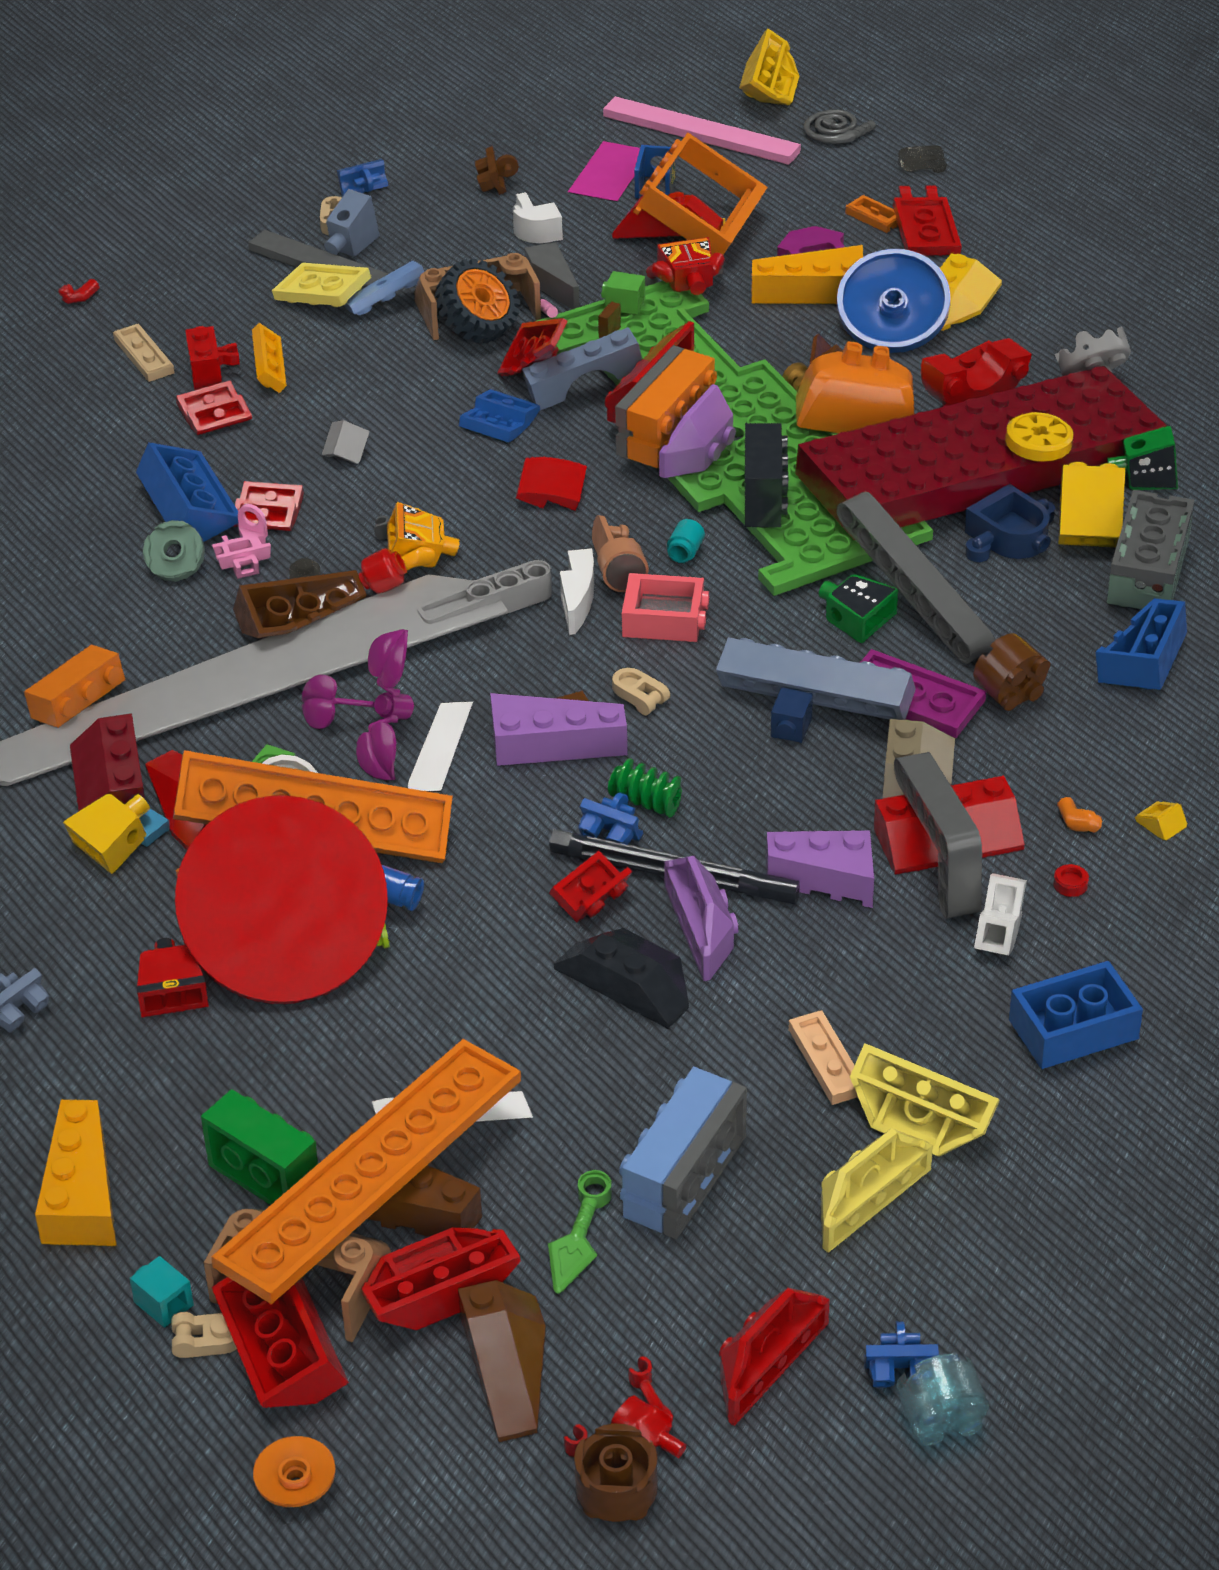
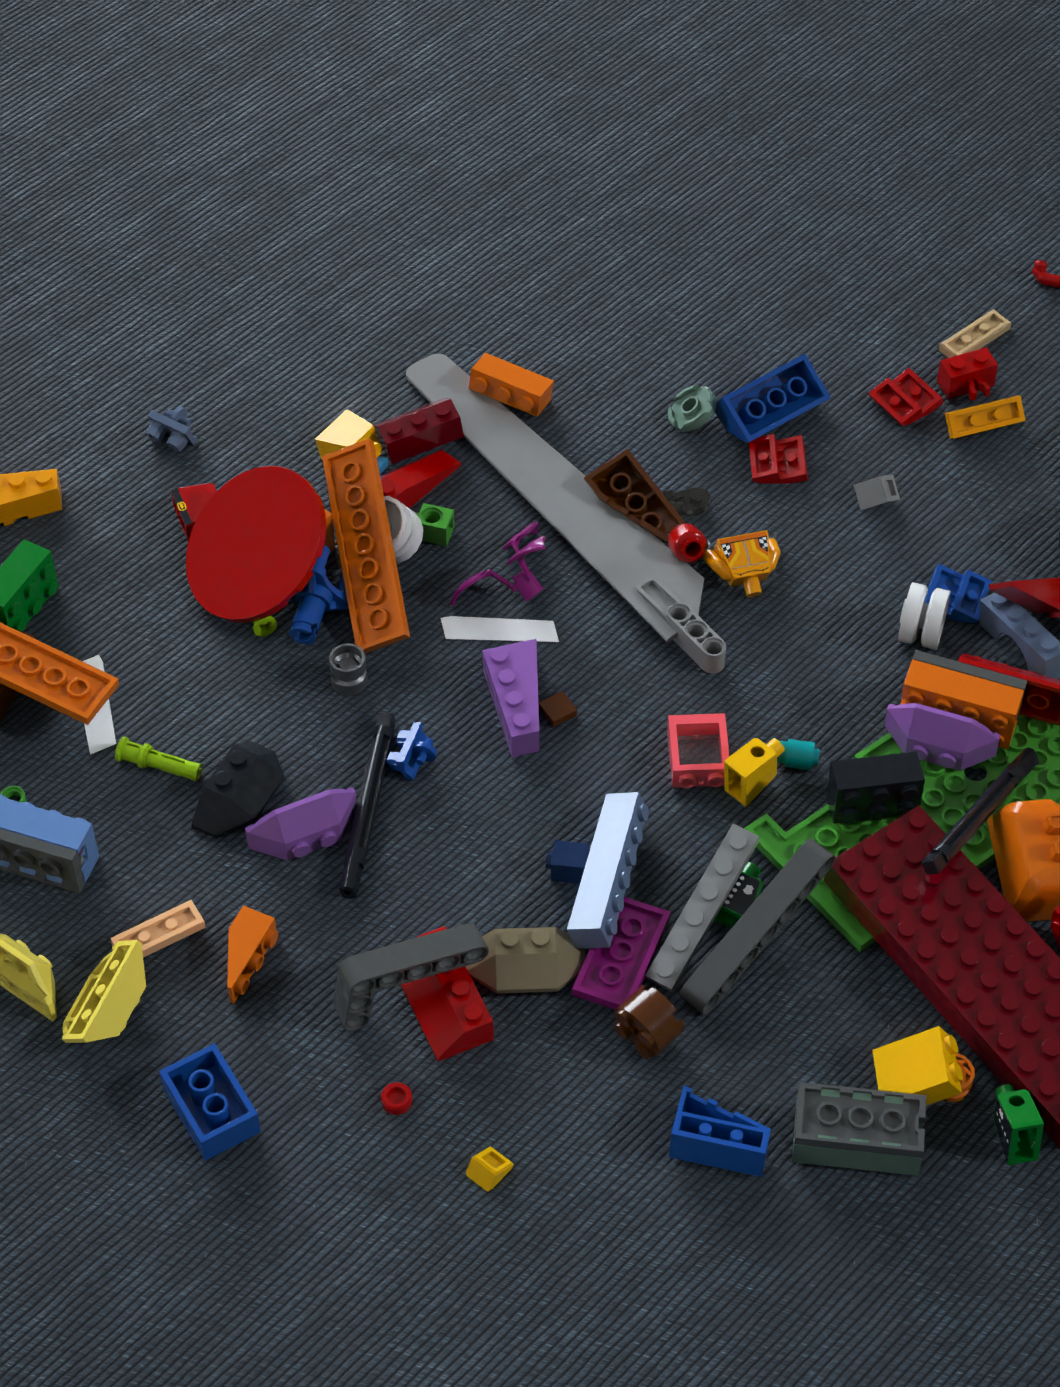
camera: 80 degrees right, 10 degrees up
(247, 548) = (704, 459): bright pink piece -> none
(480, 859) = (348, 669): none -> flat silver wheel
(539, 423) = (921, 615): none -> white wheel
(551, 480) = (863, 646): red slope -> none
(559, 1053) = (146, 757): none -> lime pin
(577, 588) = (709, 685): white slope -> none
(589, 886) = (332, 747): red bracket -> none
(618, 555) = (745, 705): nougat piece -> none
(632, 684) = (591, 741): tan plate -> none
(646, 788) = (454, 769): green piece -> none
(709, 558) = (751, 769): none -> yellow torso
(814, 409) = (980, 812): none -> black piece
(824, 862) = (377, 906): medium lavender wedge -> none
(865, 980) = (247, 943): none -> orange slope
(877, 613) = (702, 907): none -> light grey plate
(1001, 915) = (322, 1041): white brick -> none
(1008, 525) = (888, 1008): dark blue piece -> none
(1039, 437) = (1002, 1009): yellow wheel -> none
(1078, 819) = (475, 1095): orange arm -> none

